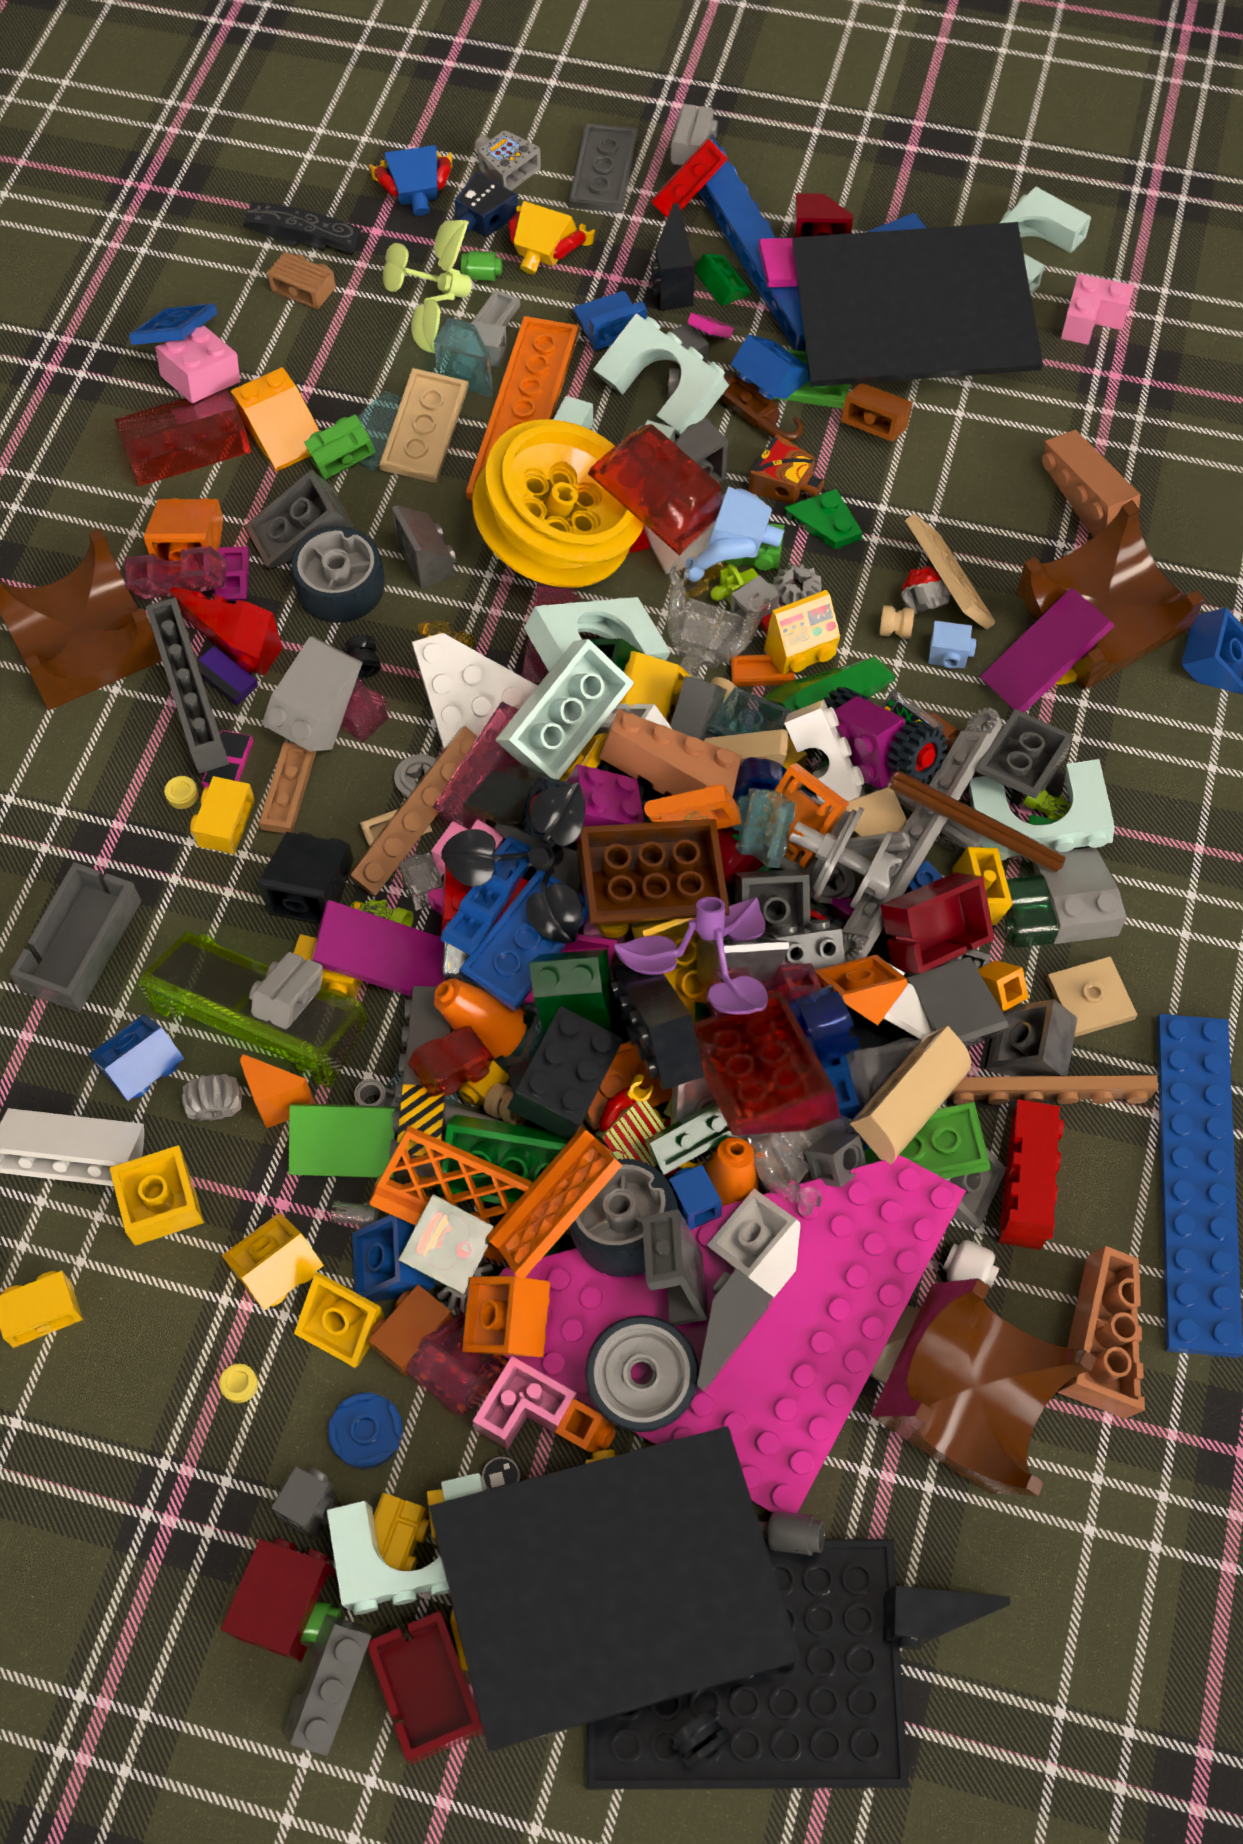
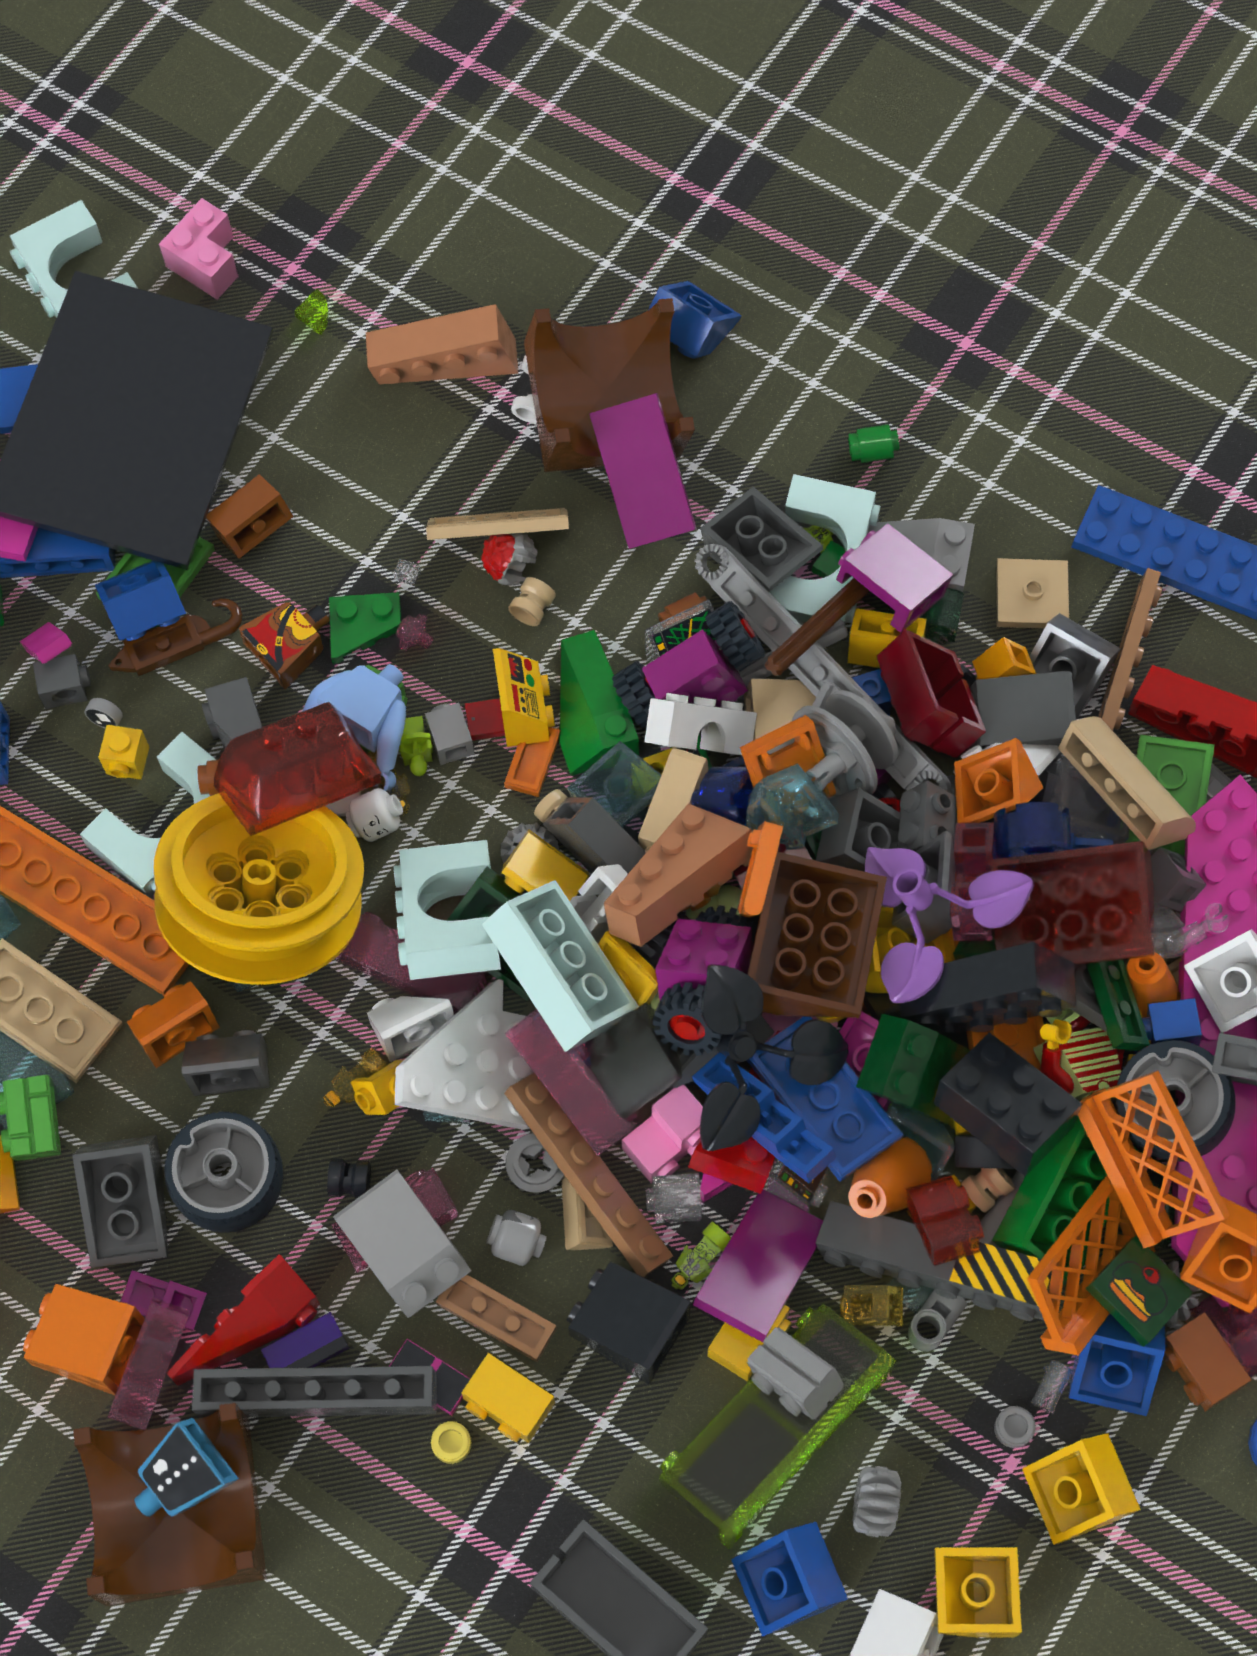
camera: 70 degrees left, 5 degrees up
(98, 613) = (182, 1471): none -> torso
(238, 1383) = (1203, 1563): light yellow tile -> none
(274, 1090) = (896, 1432): orange slope -> none
(313, 1196) = (1014, 1427): none -> light grey tile
(337, 1320) = (1170, 1436): yellow slope -> none
(340, 1139) = (969, 1373): bright green tile -> none
(352, 779) = (516, 1237): none -> light grey head
(377, 1050) = (886, 1308): none -> clear yellow brick
(442, 502) = (172, 1022): none -> orange slope
(493, 641) = (407, 1022): none -> white slope
(643, 344) = (46, 719): light aqua arch -> none
(644, 402) = (124, 752): none -> yellow brick
(656, 570) = (374, 814): none -> white head
(706, 632) = (469, 795): clear torso -> none
(790, 592) = (449, 692): light grey gear -> none
(831, 551) = (413, 632): none -> clear pink plant
(884, 534) = (406, 572): none -> clear piece
(951, 645) = (582, 561): light blue brick -> none
(1037, 862) = (896, 574): none -> panel
(1083, 399) = (314, 311): none -> clear neon green tile
(1172, 825) = (873, 443): none -> green brick

